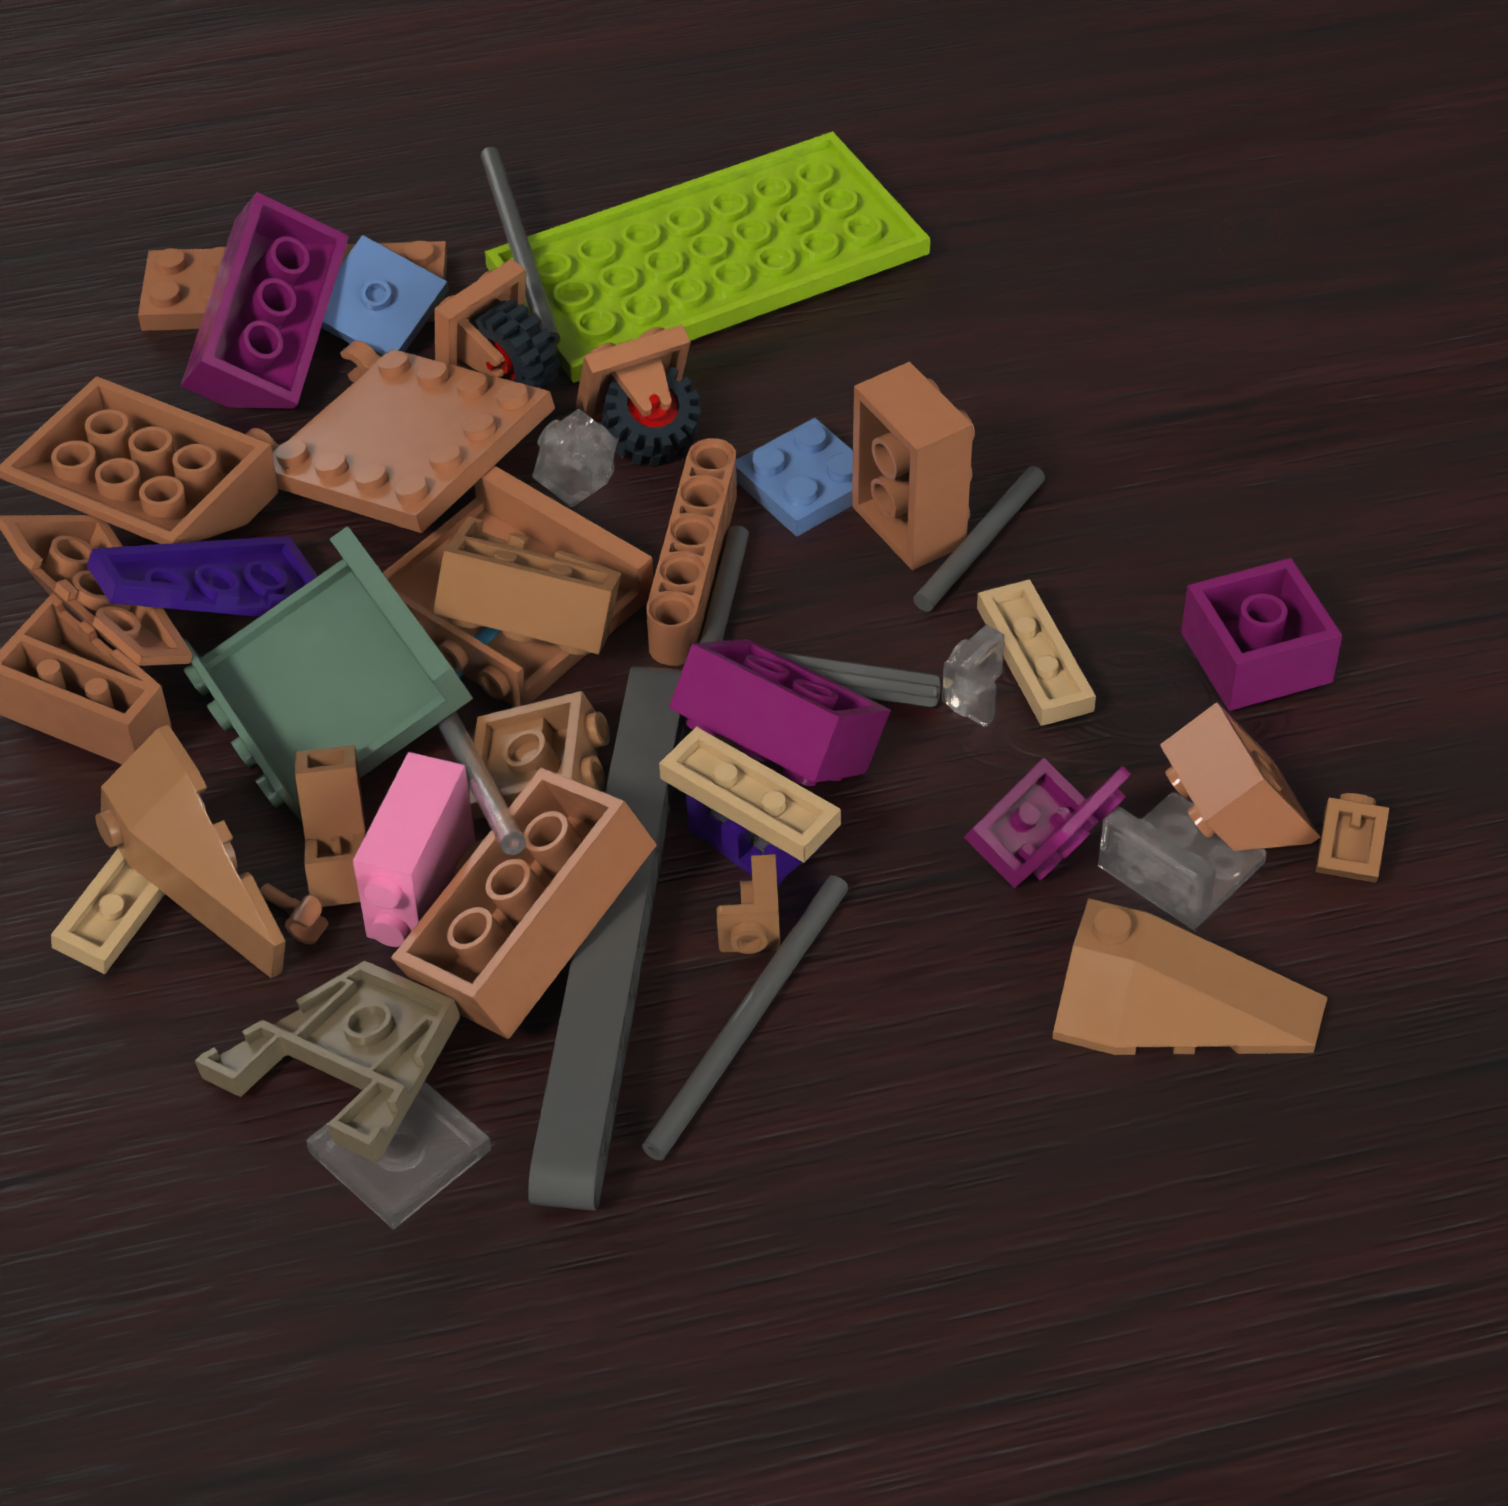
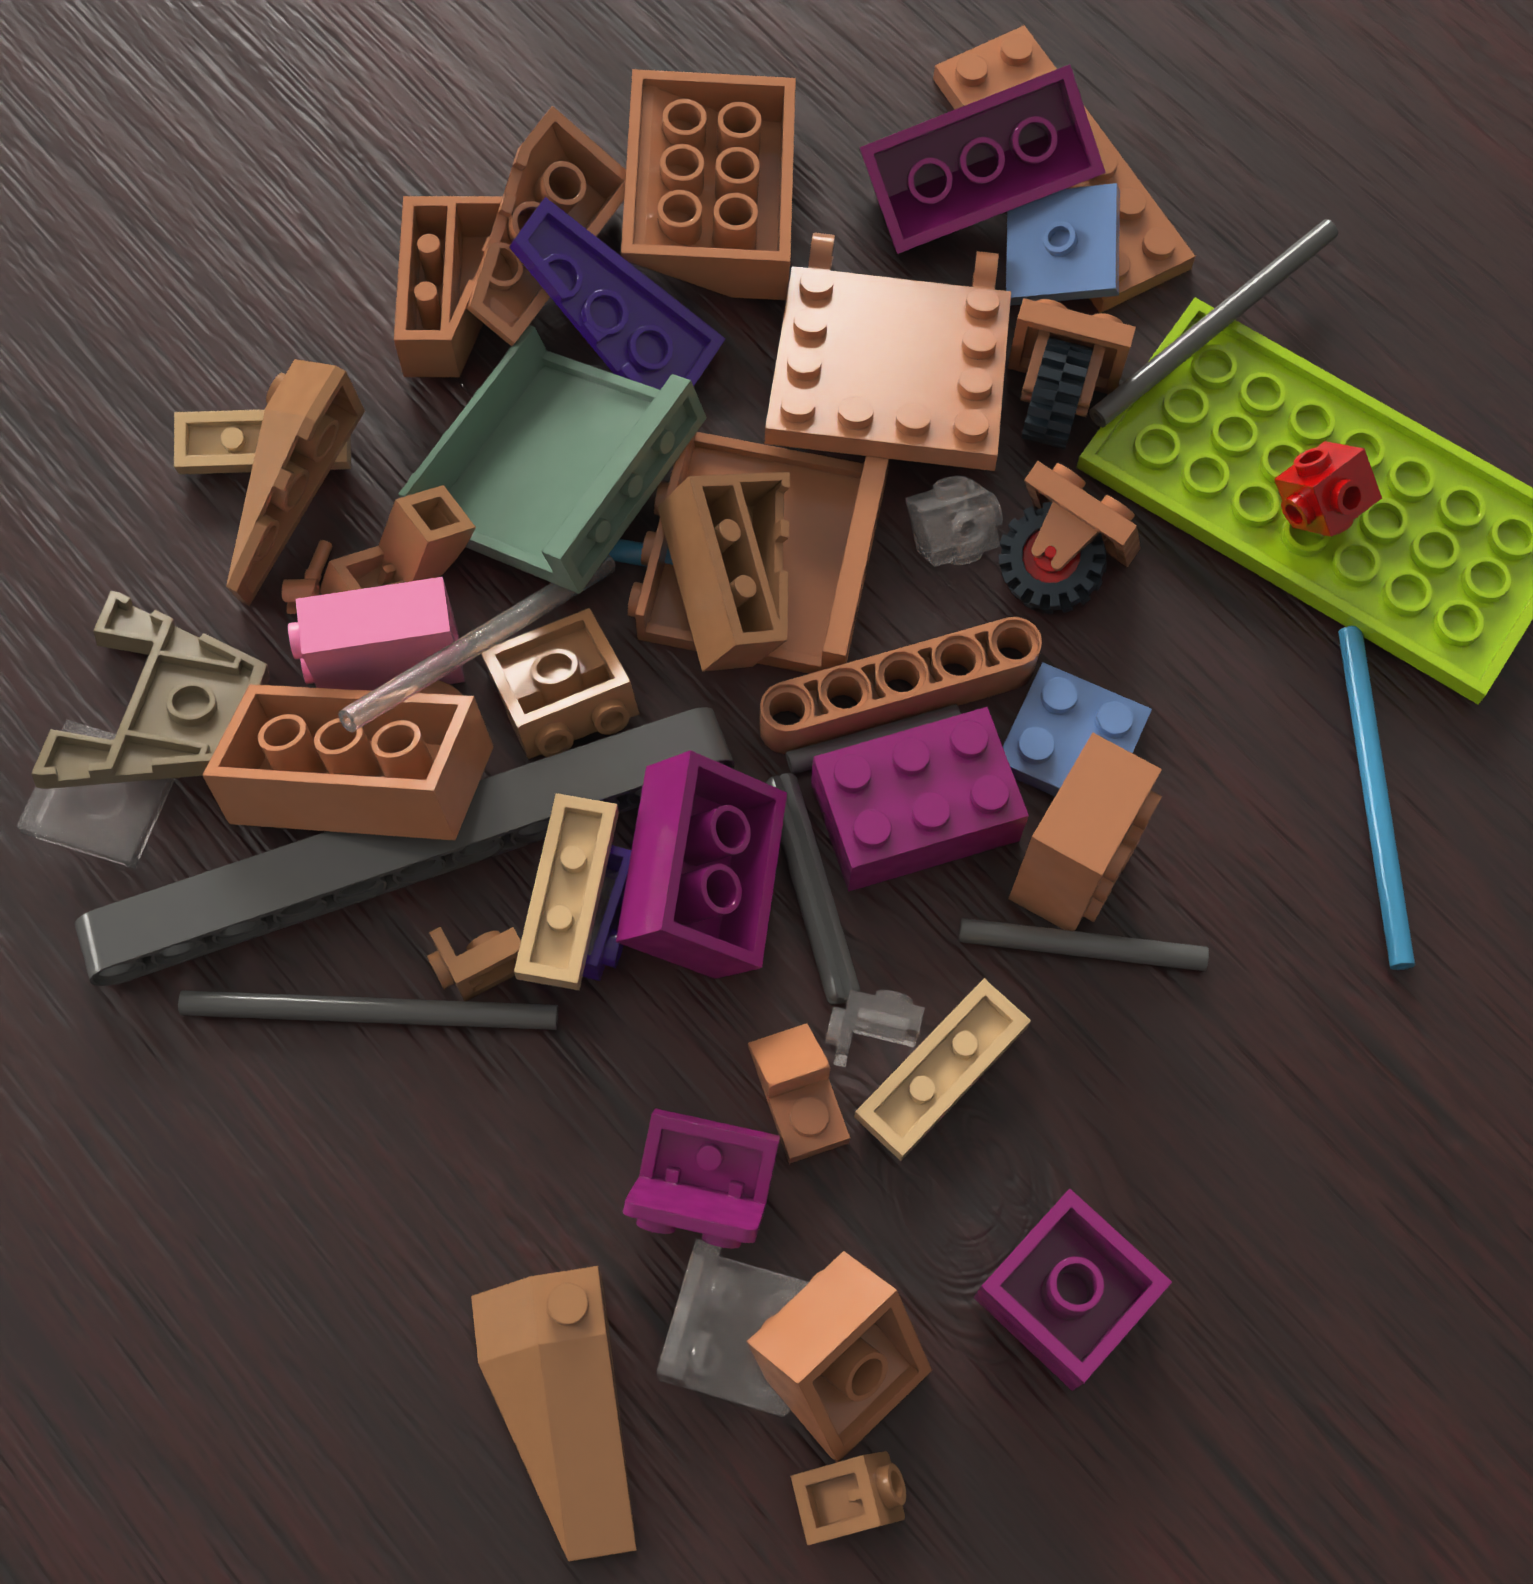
camera: 60 degrees right, 20 degrees up
(716, 232) = (1327, 488): none -> red brick
(801, 572) = (918, 798): none -> magenta brick
(966, 334) = (1376, 800): none -> dark azure piece
(989, 750) = (799, 1092): none -> nougat slope

